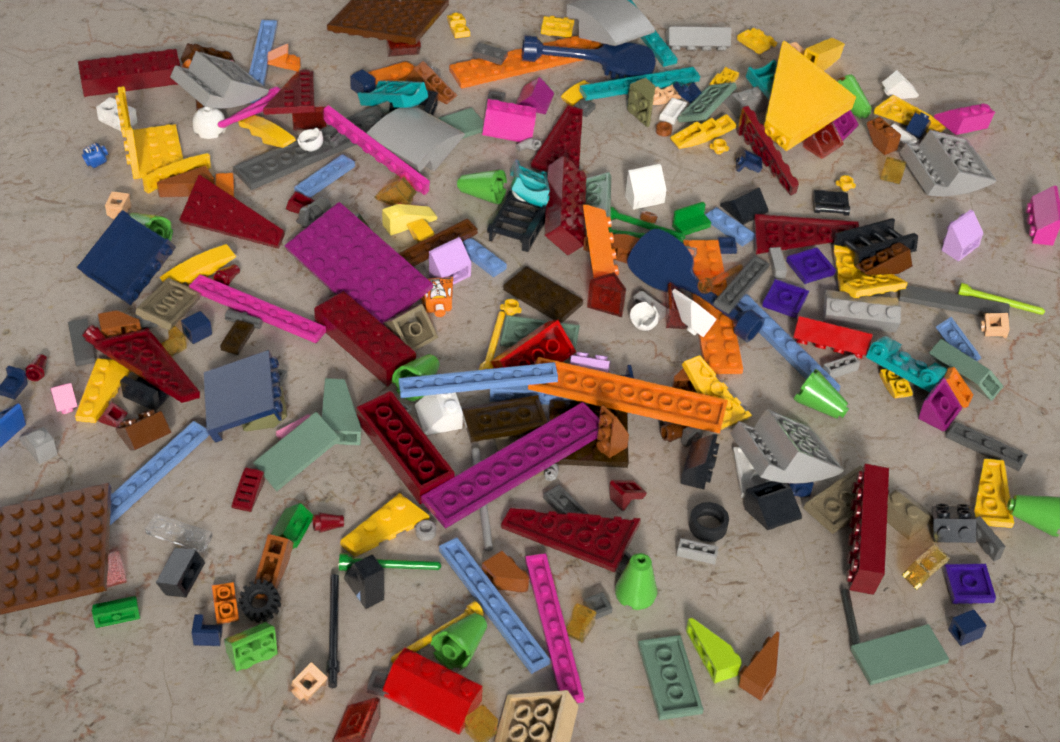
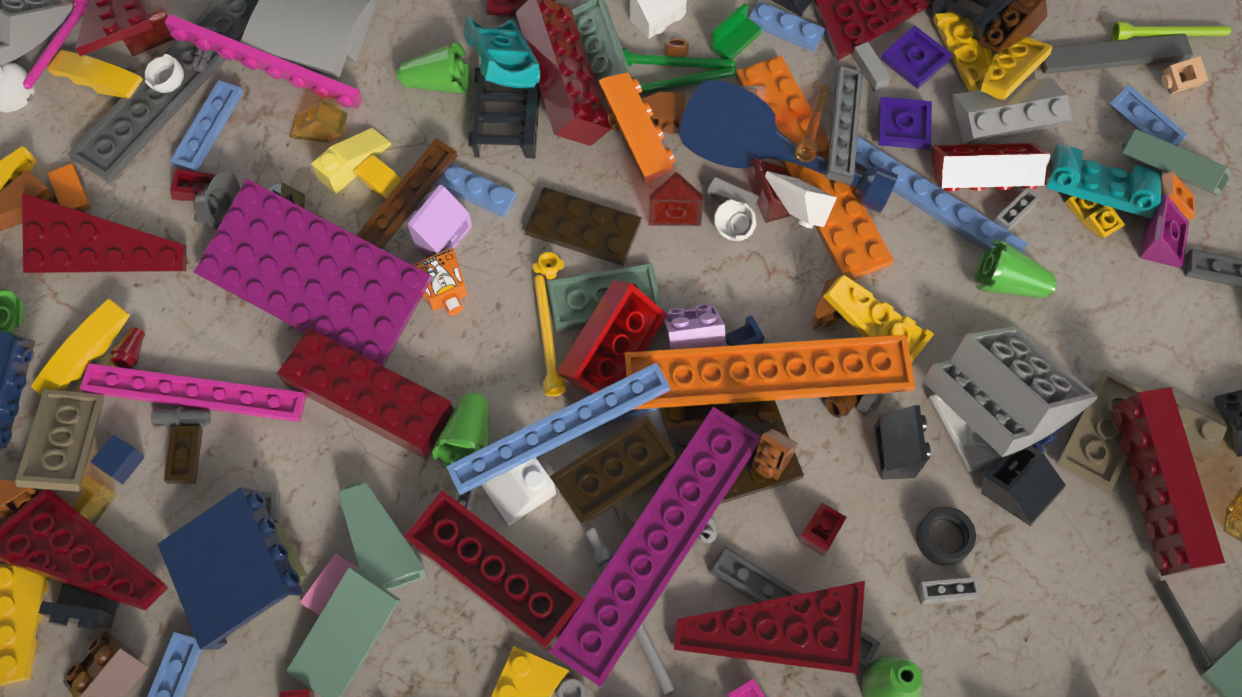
camera: 15 degrees left, 20 degrees up
(113, 415) = (51, 659): dark red slope -> none
(241, 116) = (50, 59): dark pink piece -> none
(412, 327) = (425, 353): dark tan slope -> none
(727, 245) = (796, 58): dark blue tile -> none

